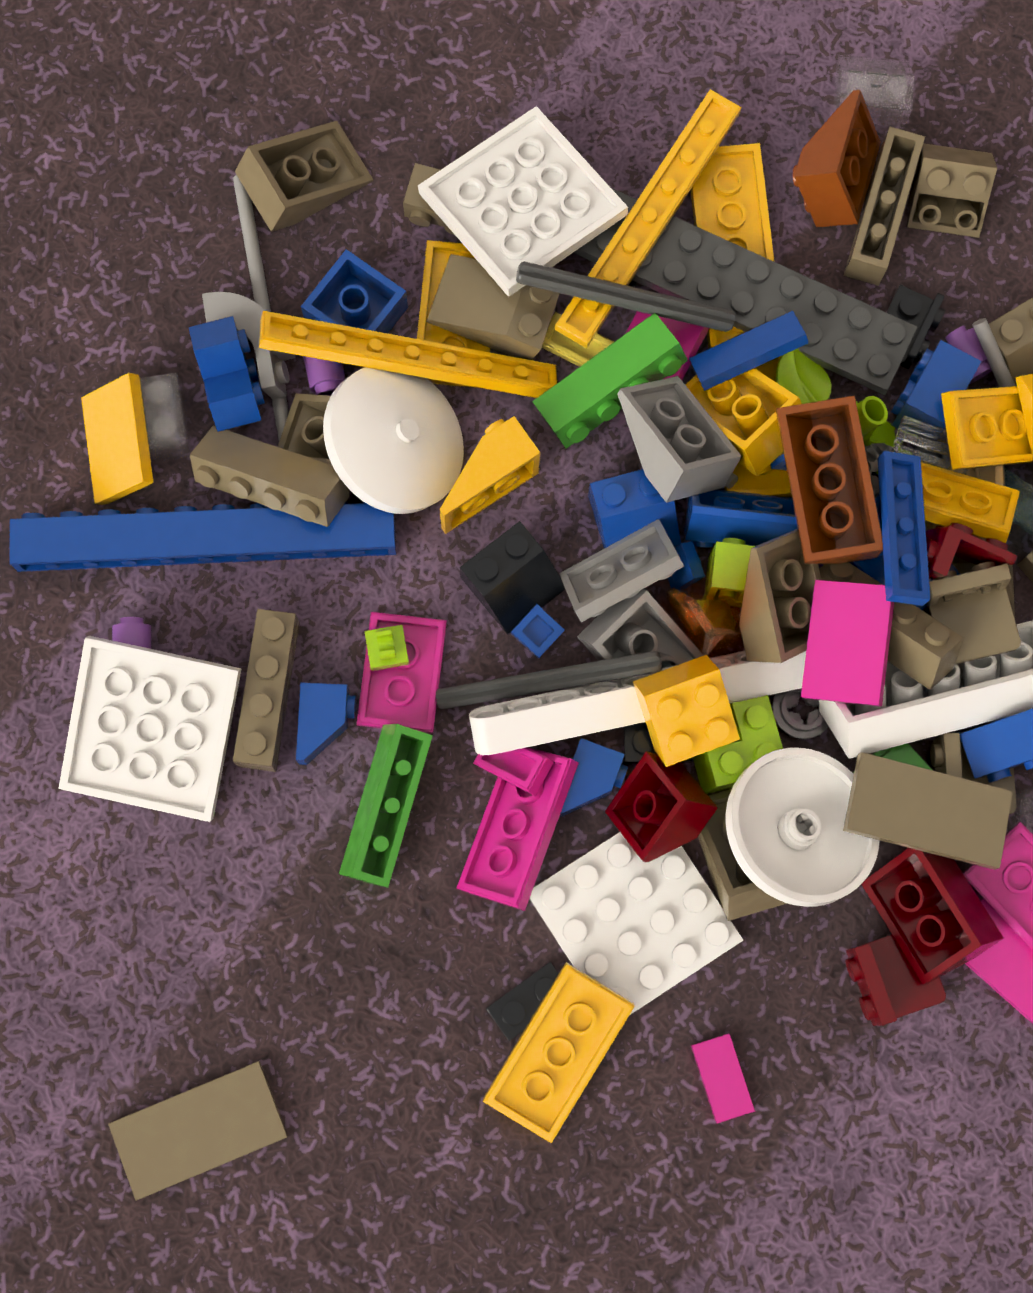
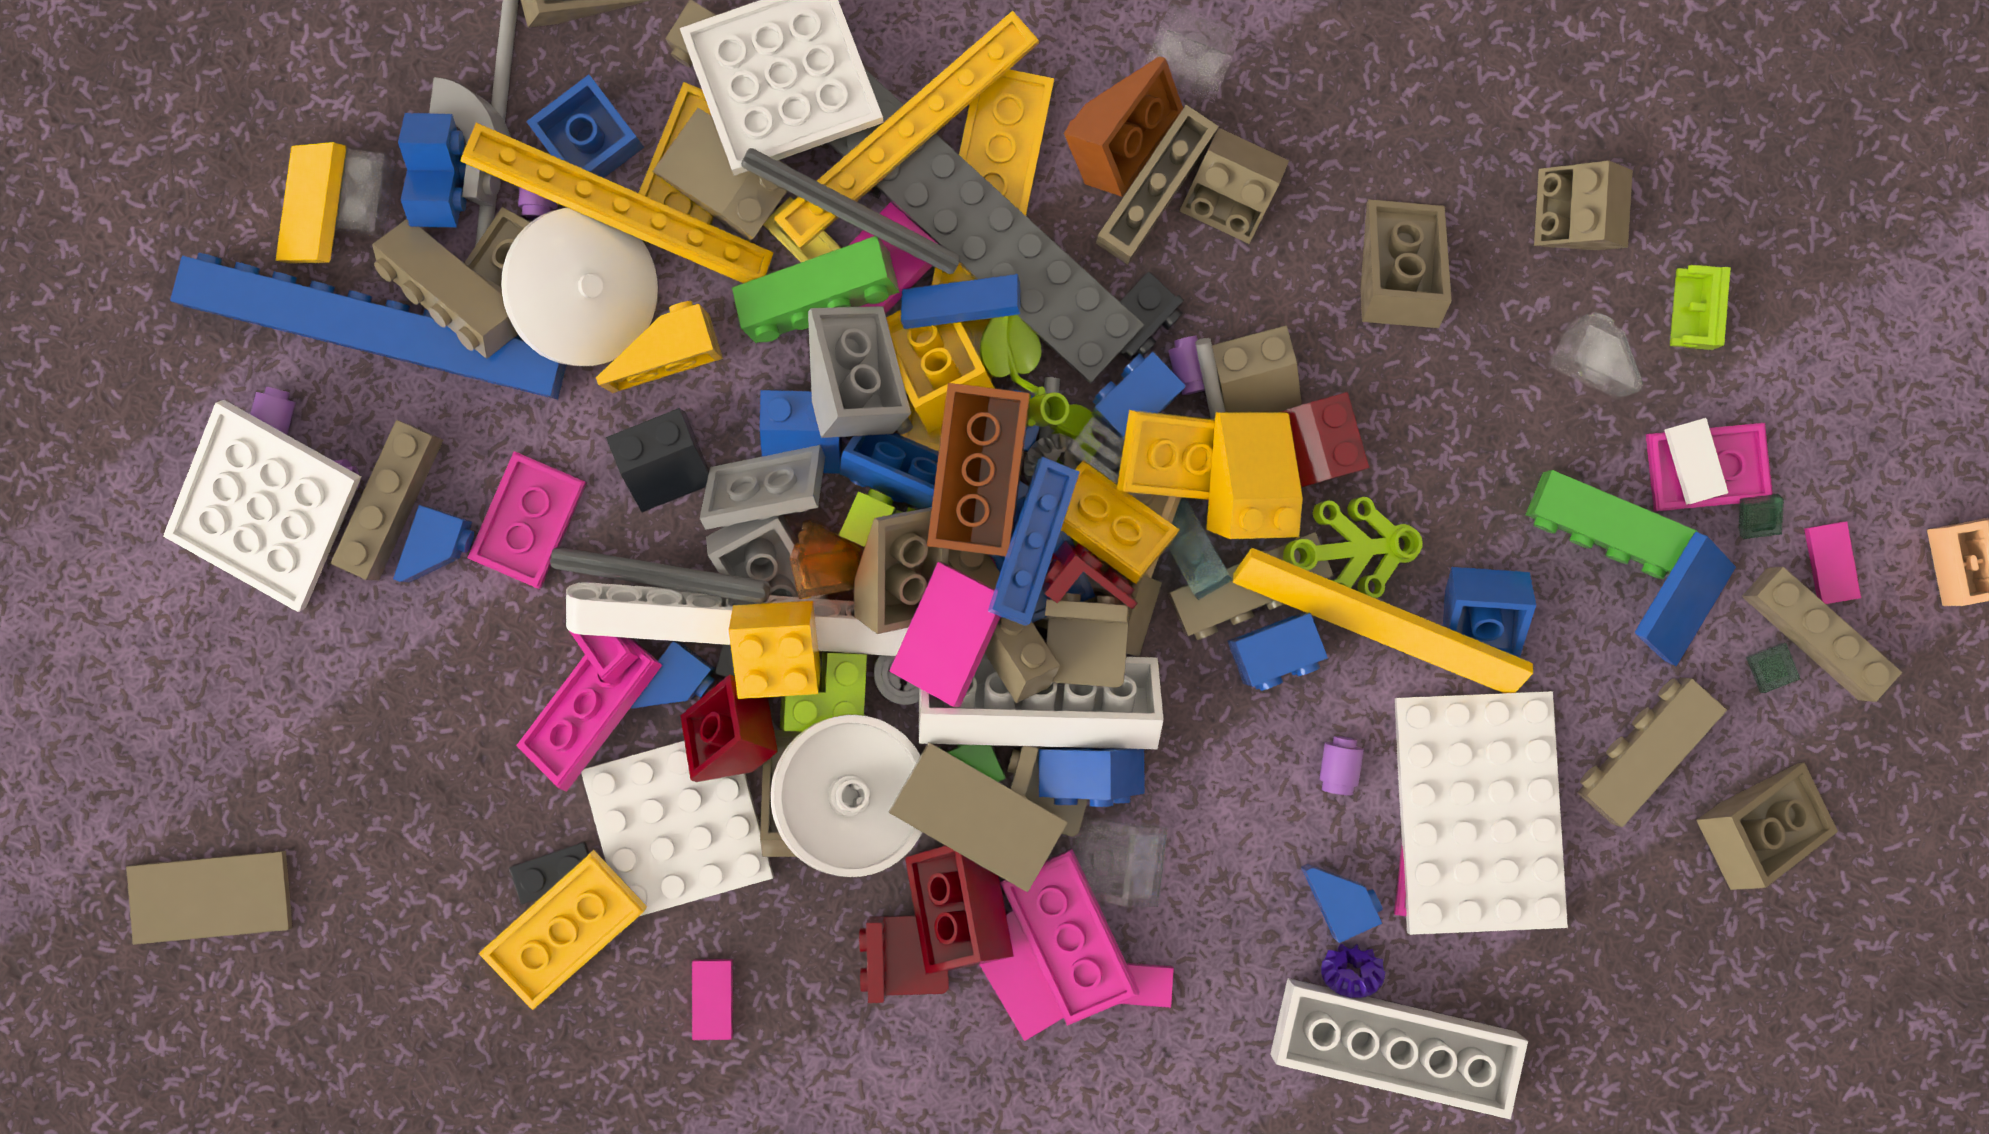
camera: 25 degrees right, 10 degrees up
(385, 805) = (467, 648): bright green brick -> none
(386, 647) = (516, 493): lime tile -> none
(537, 631) = (669, 519): blue plate -> none
(692, 567) = (833, 498): blue plate -> none

